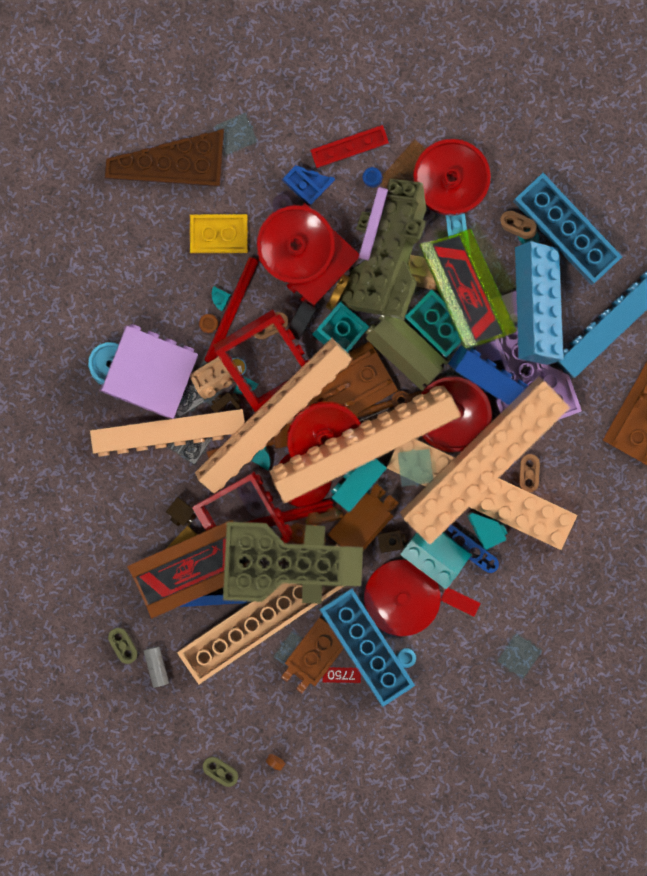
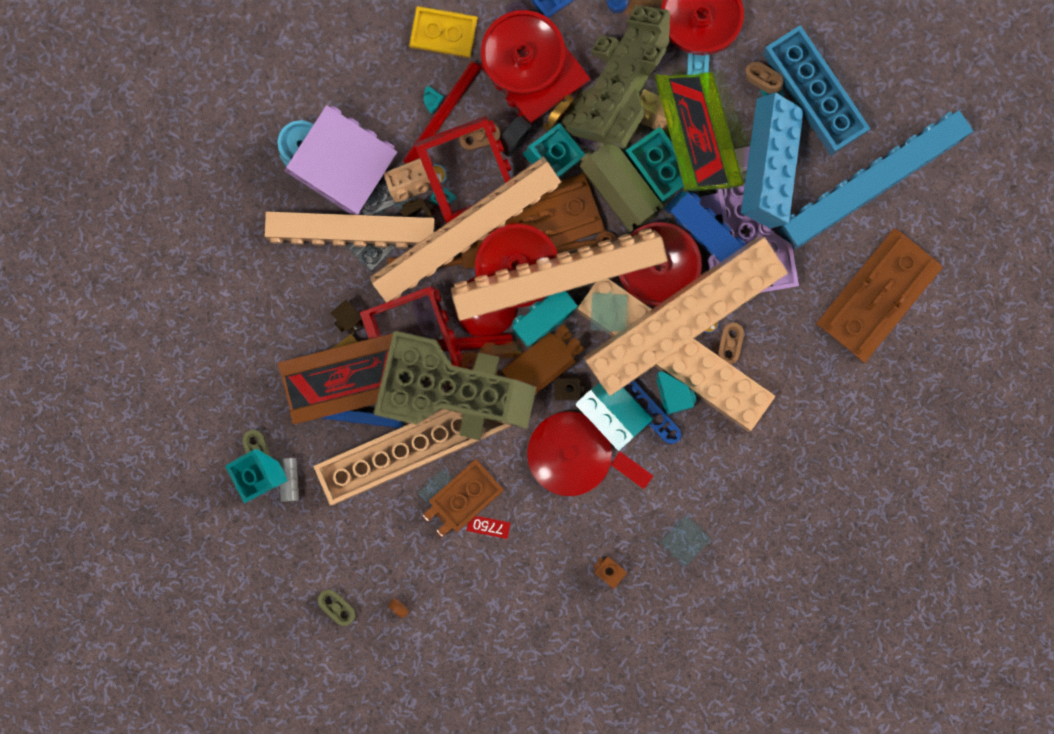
camera: 15 degrees right, 5 degrees down
(127, 669) = (255, 474): none -> teal slope
(208, 323) = (414, 124): dark orange tile -> none
(263, 458) = (446, 276): teal tile -> none
(366, 647) = (520, 498): dark azure brick -> none
(373, 223) = (609, 45): lavender beam -> none
(406, 657) = (562, 520): medium azure tile -> none
(456, 696) = (609, 571): none -> dark orange brick

